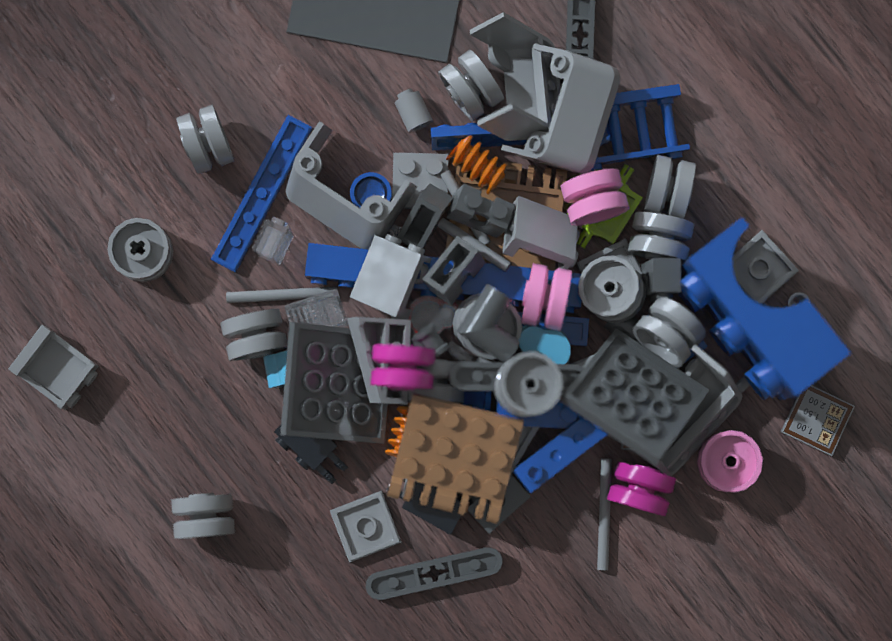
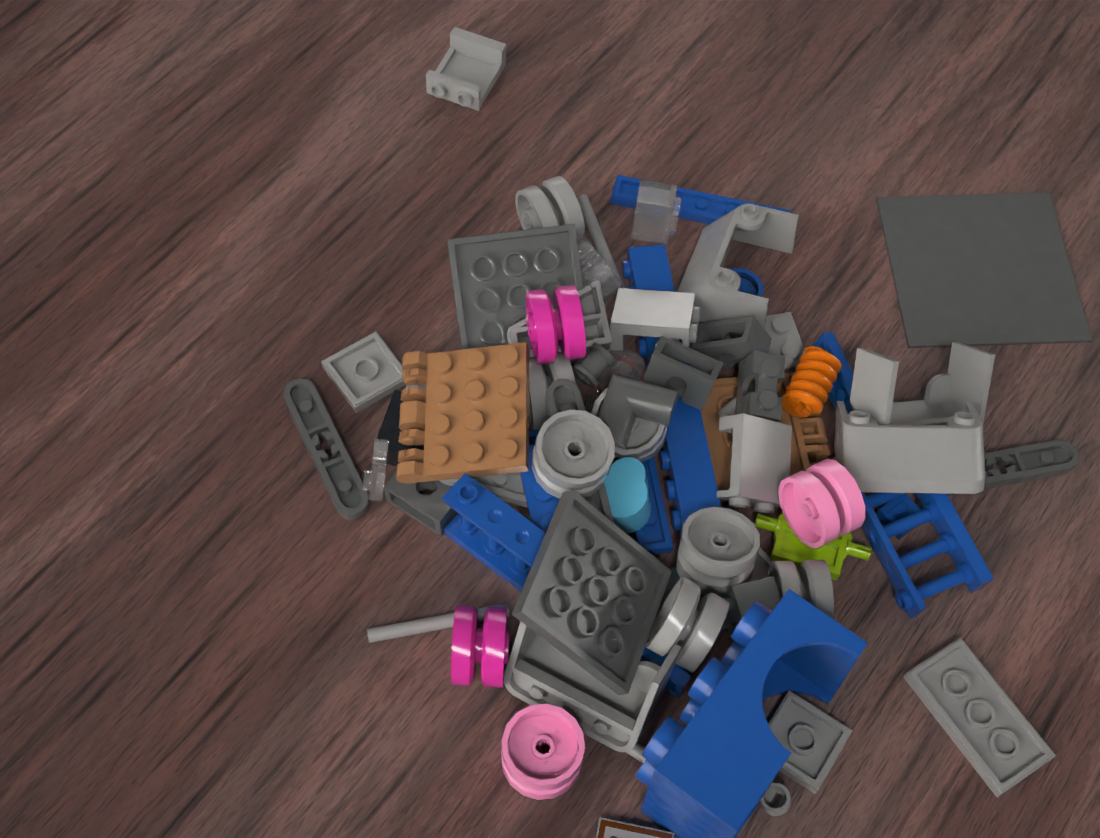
camera: 70 degrees right, 25 degrees down
(125, 243) = (606, 110): light grey wheel -> none
(202, 140) = (739, 135): light grey wheel -> none
(202, 514) = (347, 205): light grey wheel -> none
(312, 452) = (435, 302): black hinge -> none
(413, 110) = (844, 318): light grey brick -> none
(469, 87) = (911, 357): light grey wheel -> none
(479, 539) = (374, 479): none -> clear plate
(485, 251) = (718, 401): light grey bar -> none
(547, 297) = (684, 469): bright pink wheel -> none
(672, 189) = (867, 594): light grey wheel -> none
(770, 132) = (979, 717): none -> light grey tile

